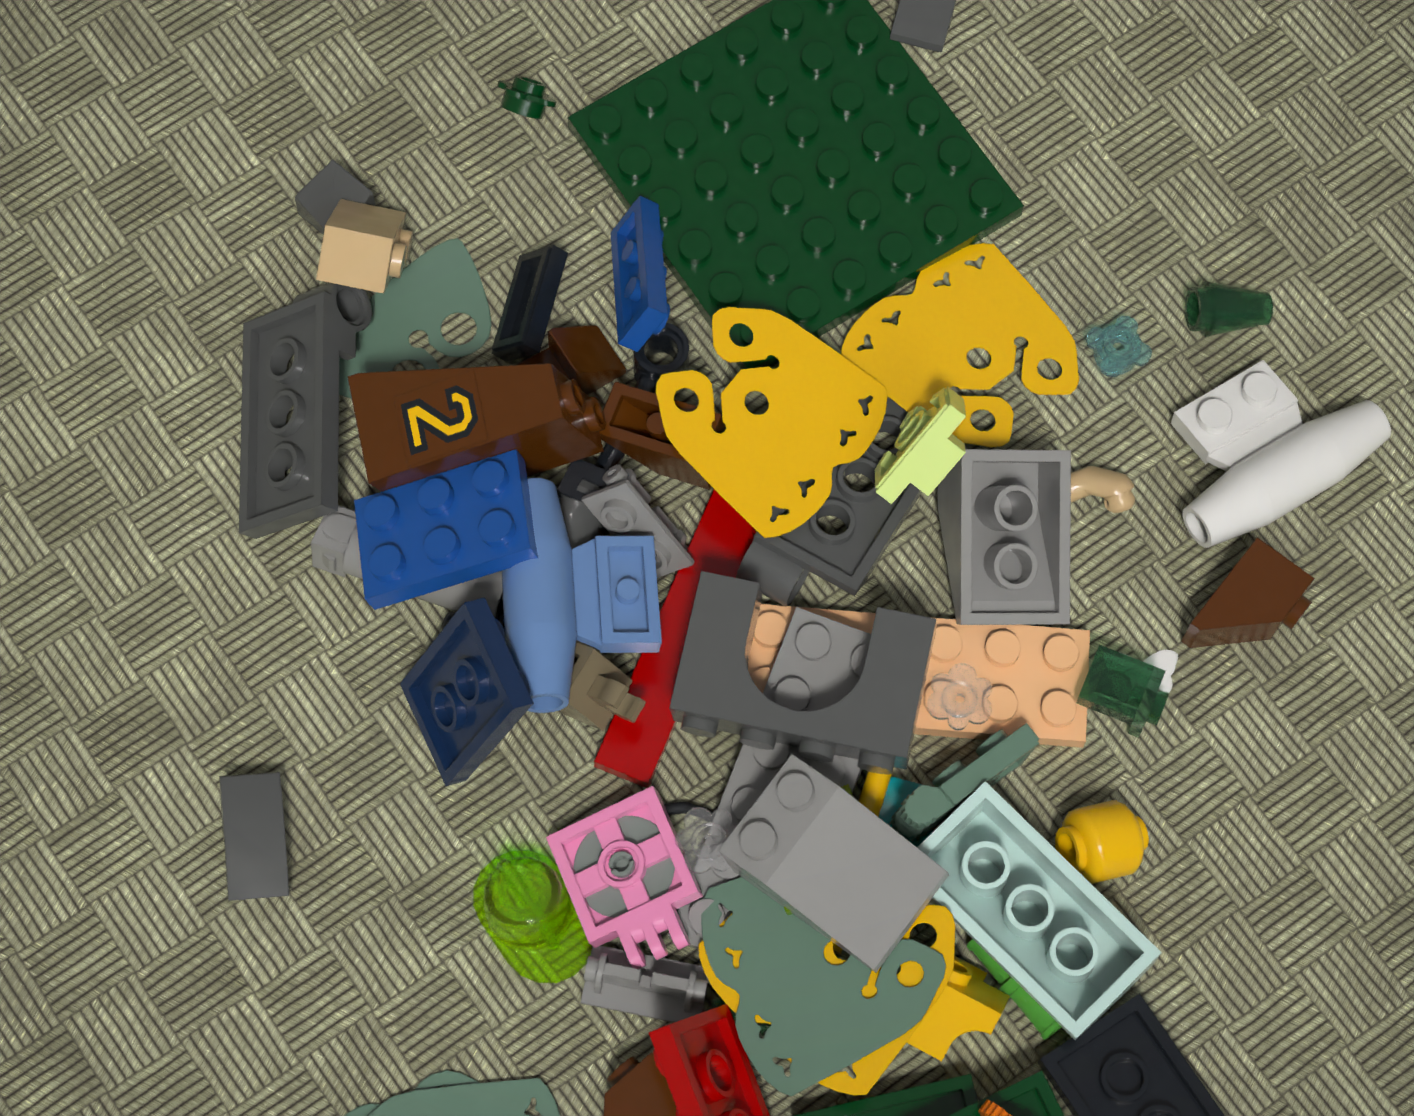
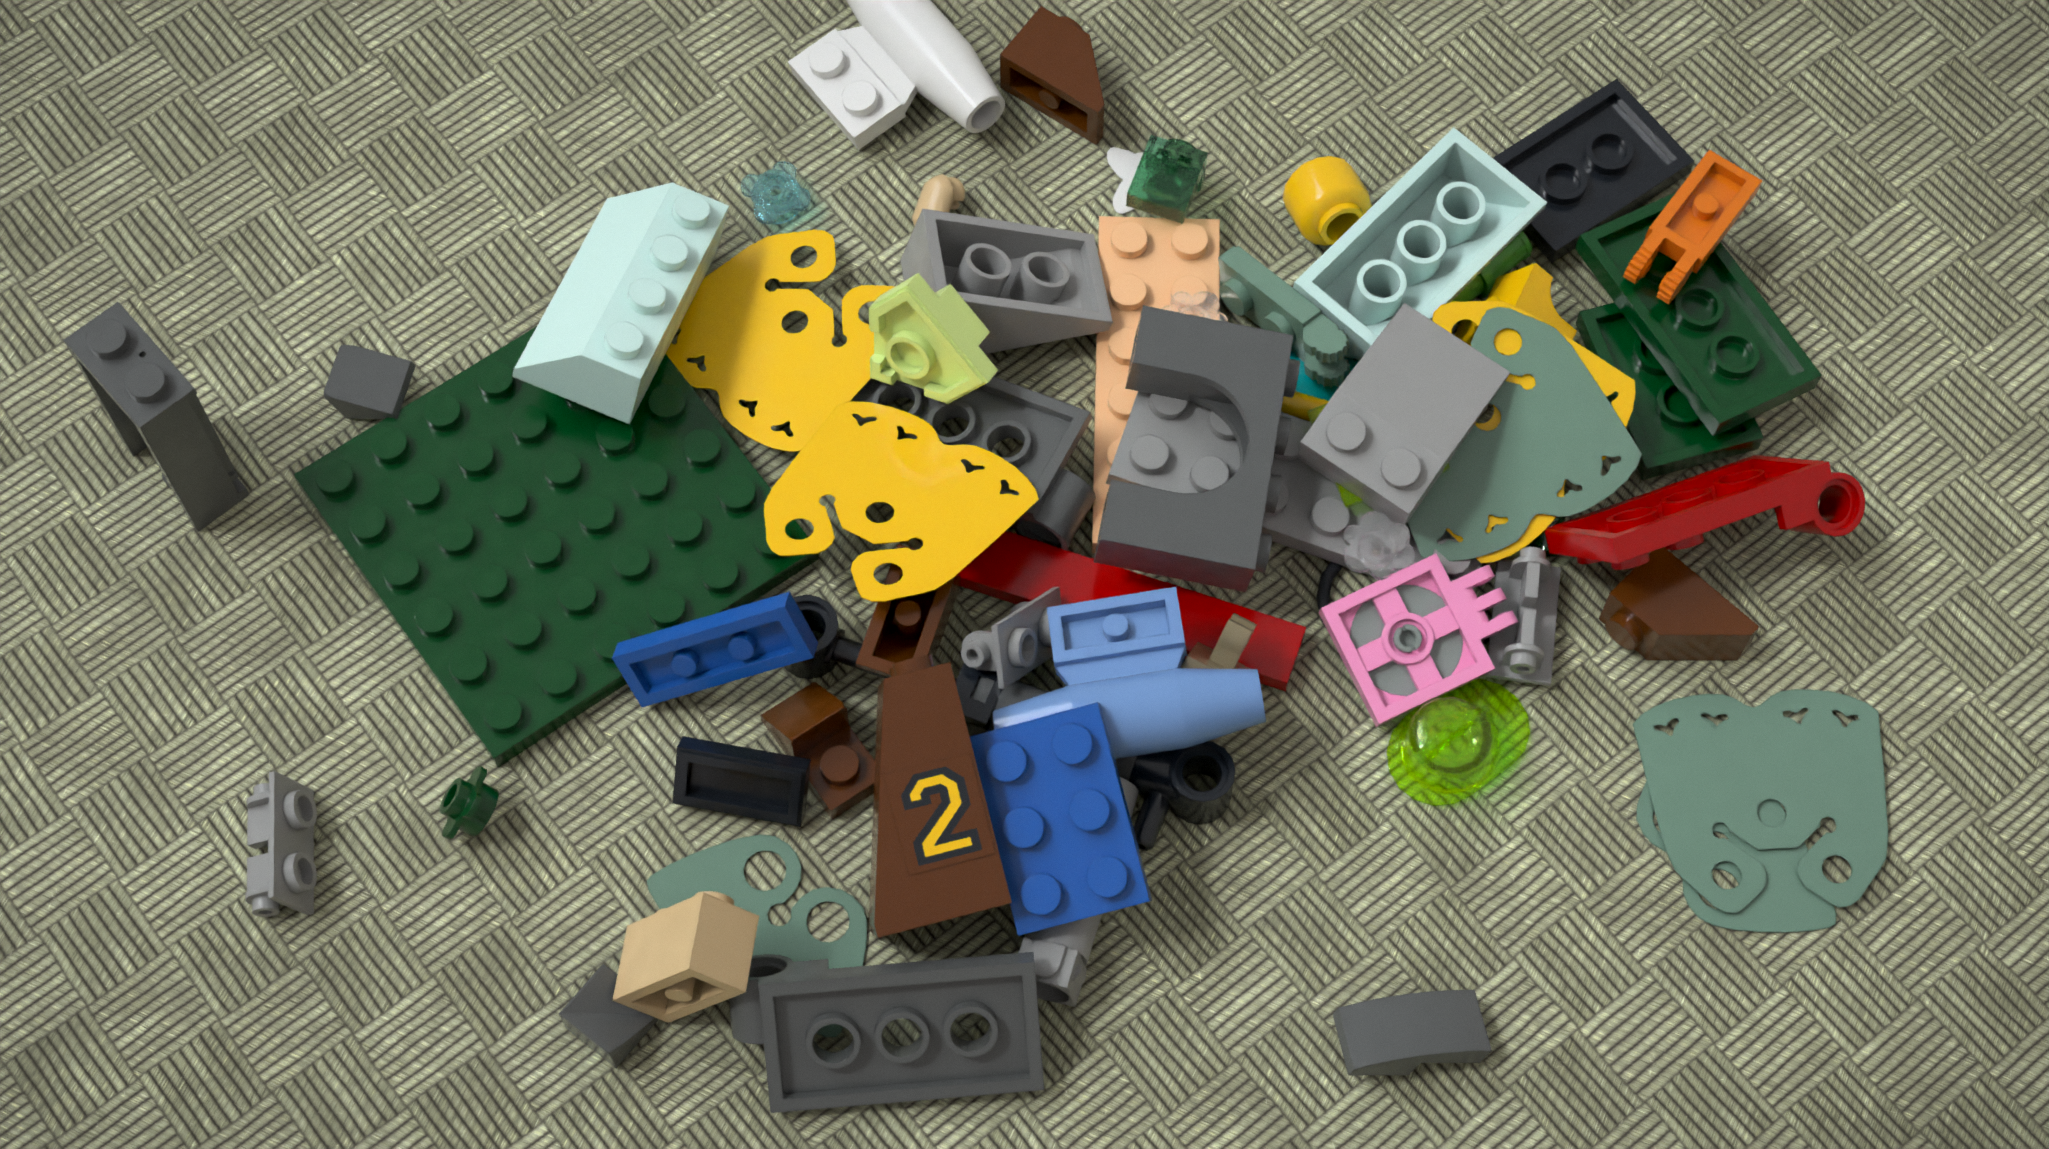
camera: 90 degrees left, 5 degrees down
(466, 691) = (1246, 790): dark blue plate -> none
(990, 207) = (624, 298): none -> light aqua slope
(1226, 308) = (730, 95): clear green cone -> none

